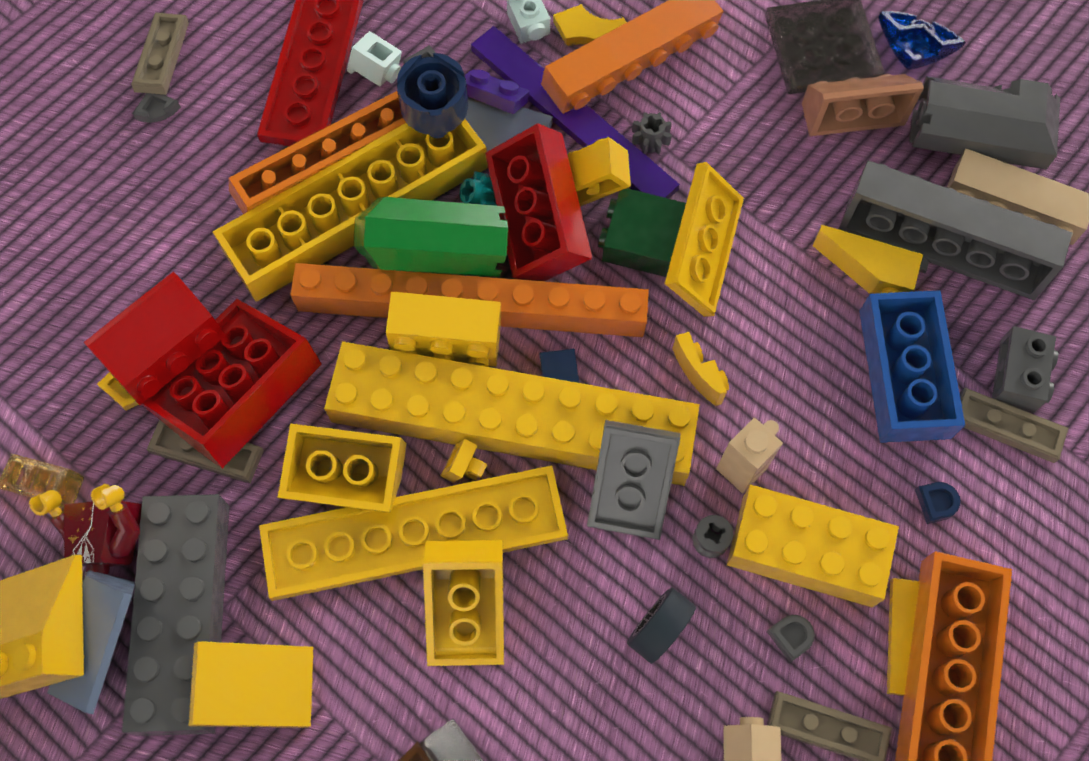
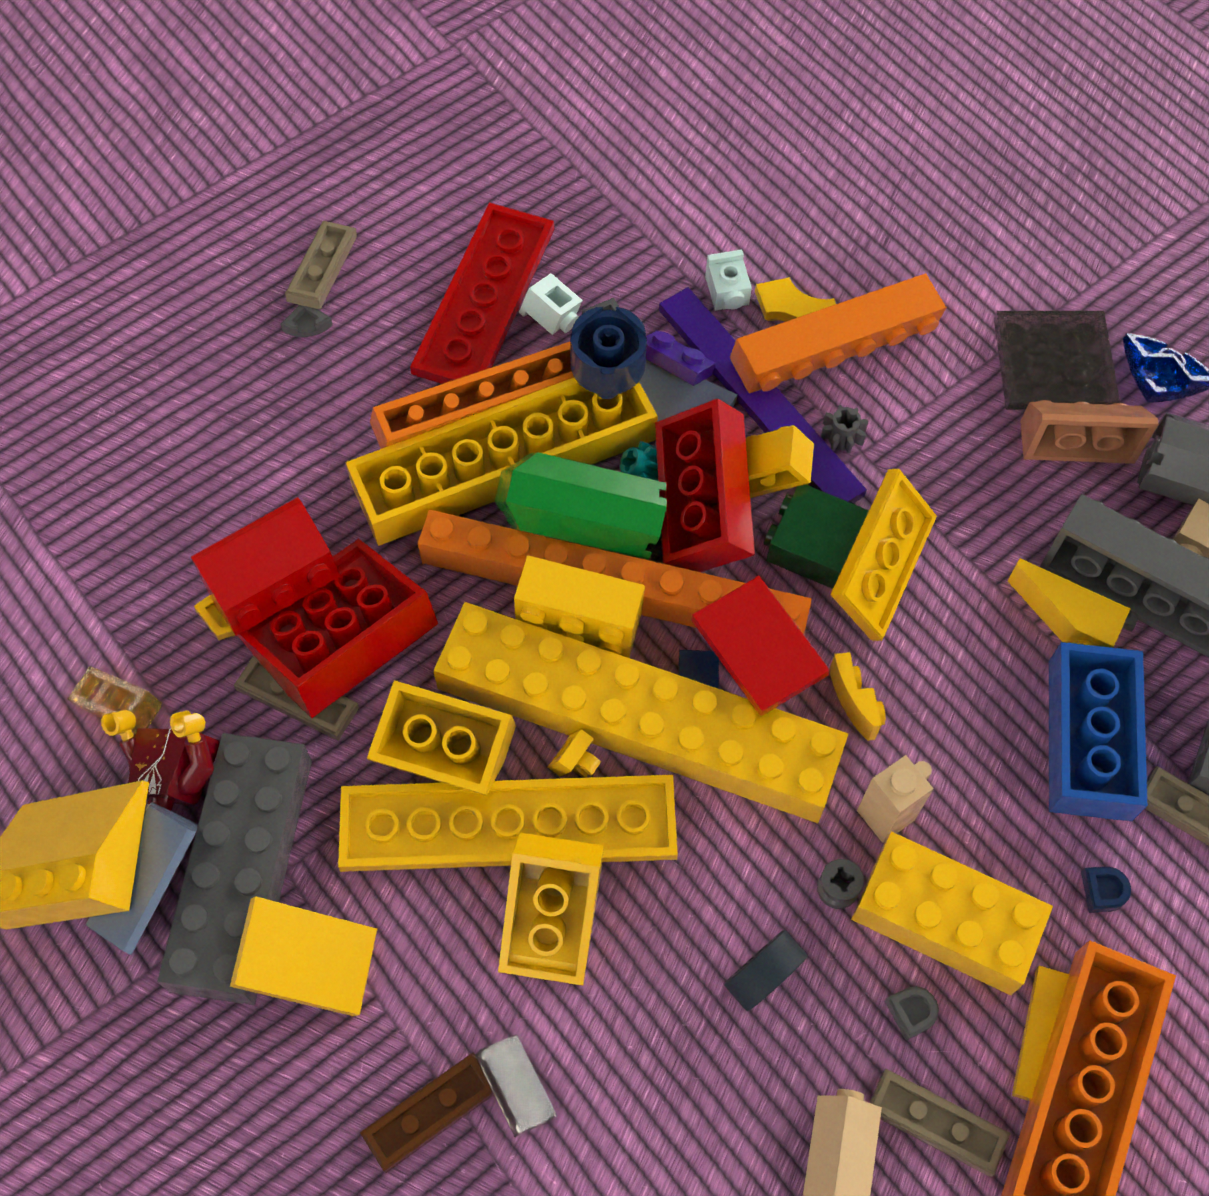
camera: 10 degrees right, 5 degrees down
(610, 339) = (760, 645): none -> red tile
(633, 479) = (760, 804): dark grey tile -> none

